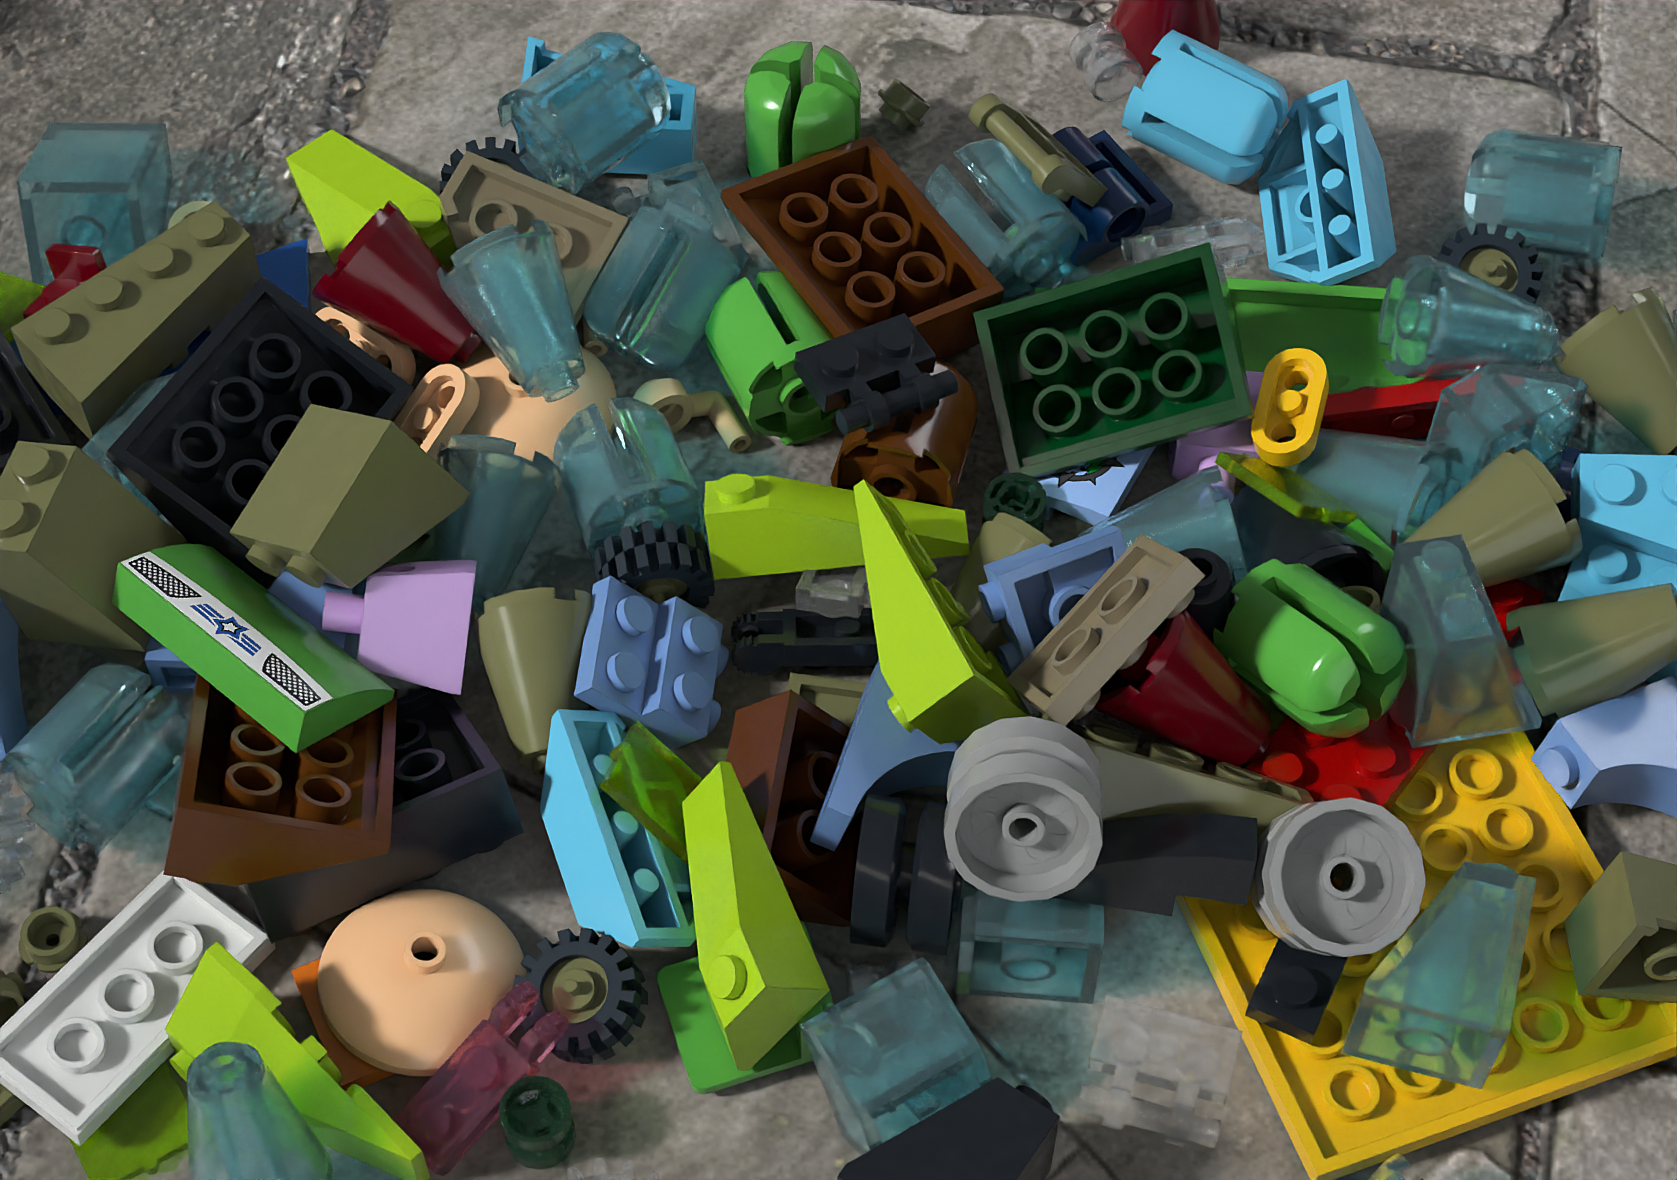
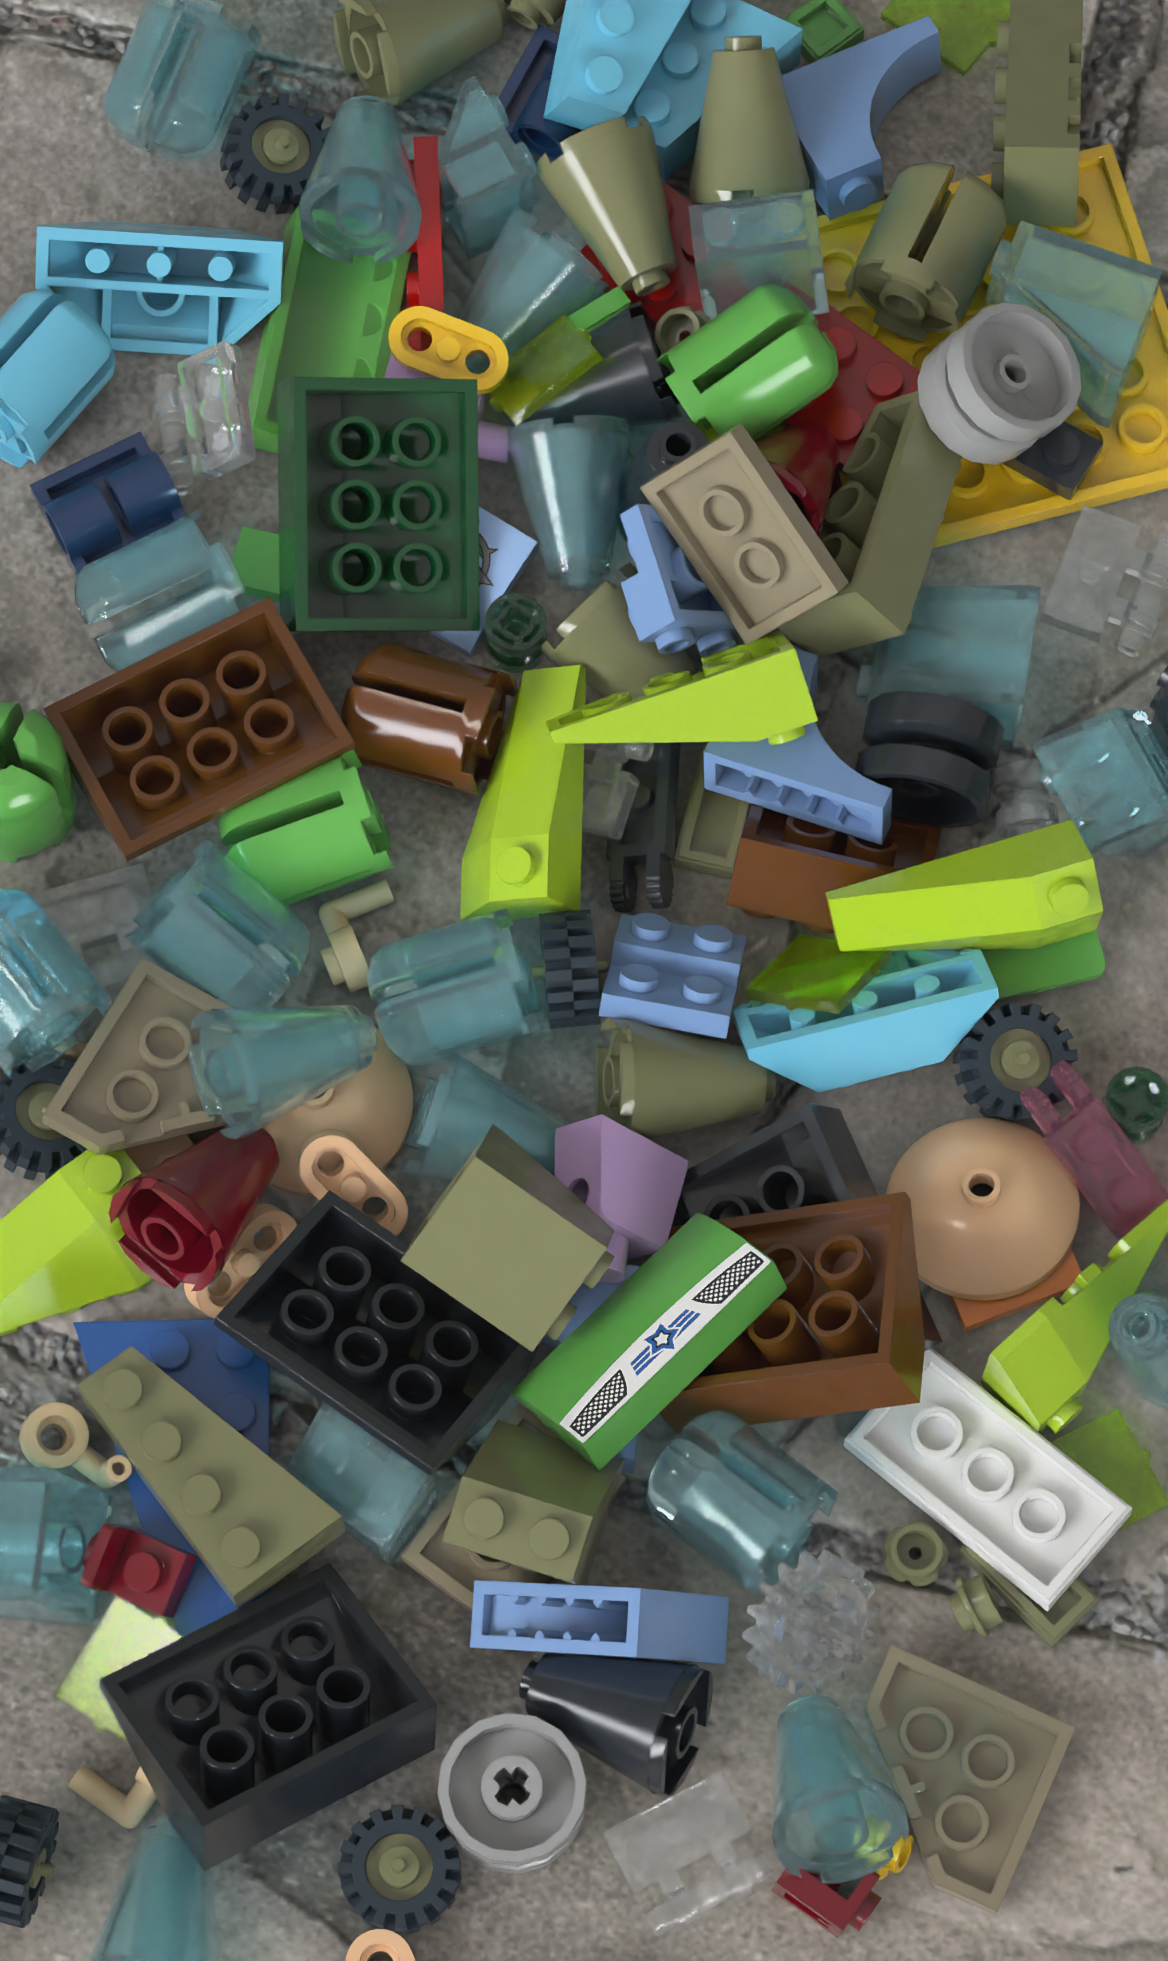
camera: 85 degrees left, 15 degrees up
(869, 361) = (381, 728): black plate -> none
(1024, 809) = (935, 622): light grey wheel -> none
(1037, 149) = (106, 536): olive plate -> none
(1169, 855) = (962, 538): black slope -> none
(1509, 815) = (927, 259): none -> olive cylinder

